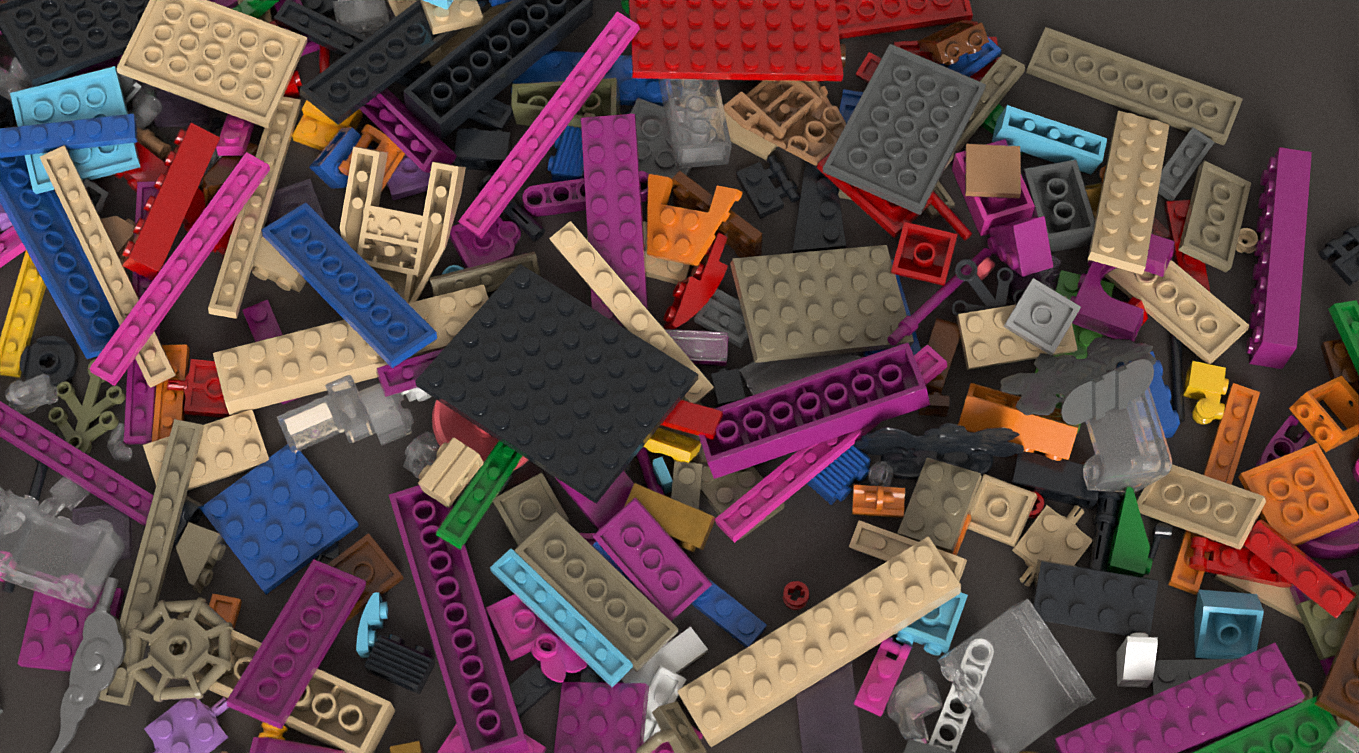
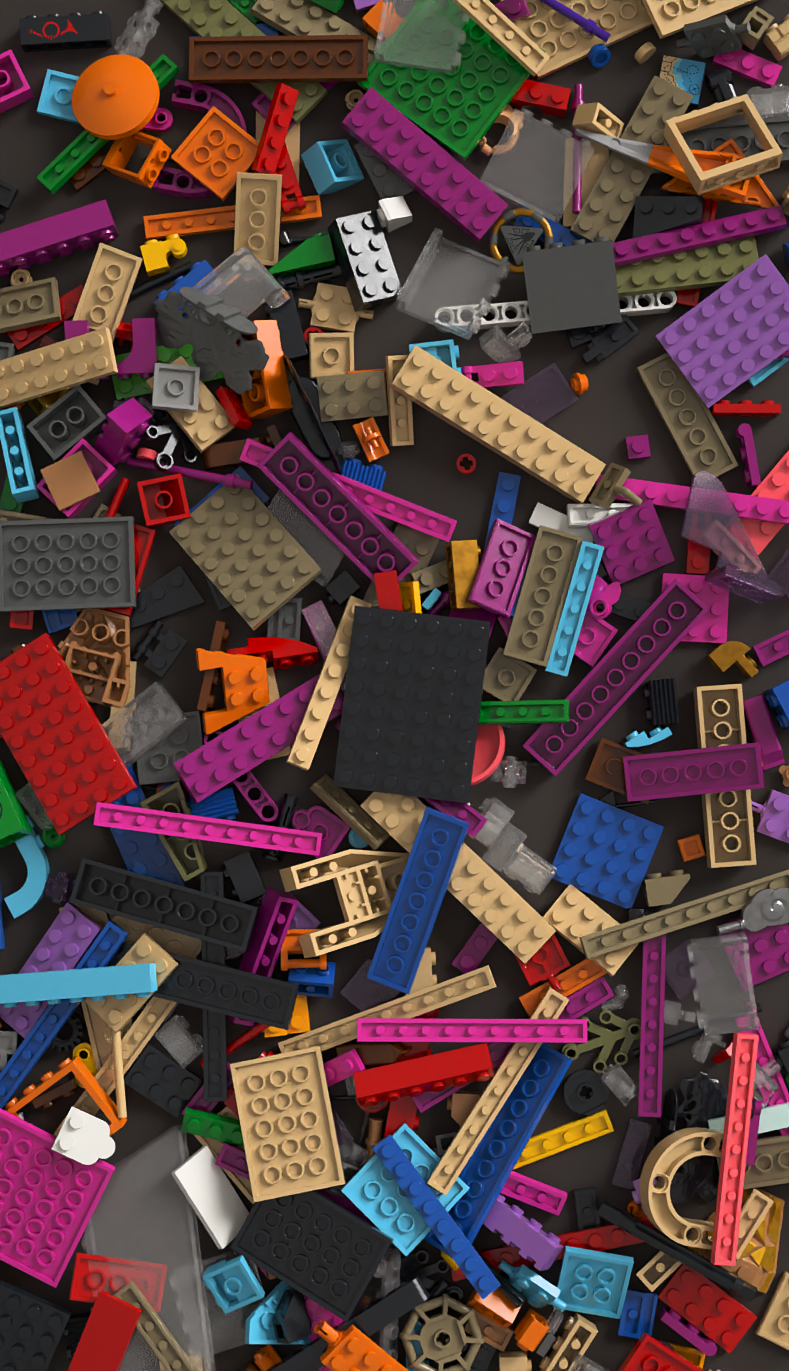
camera: 120 degrees left, 20 degrees up
(184, 665) = (753, 841): dark tan plate -> none
(450, 472) = (520, 738): tan brick -> none
(986, 371) = (233, 406): none -> red plate

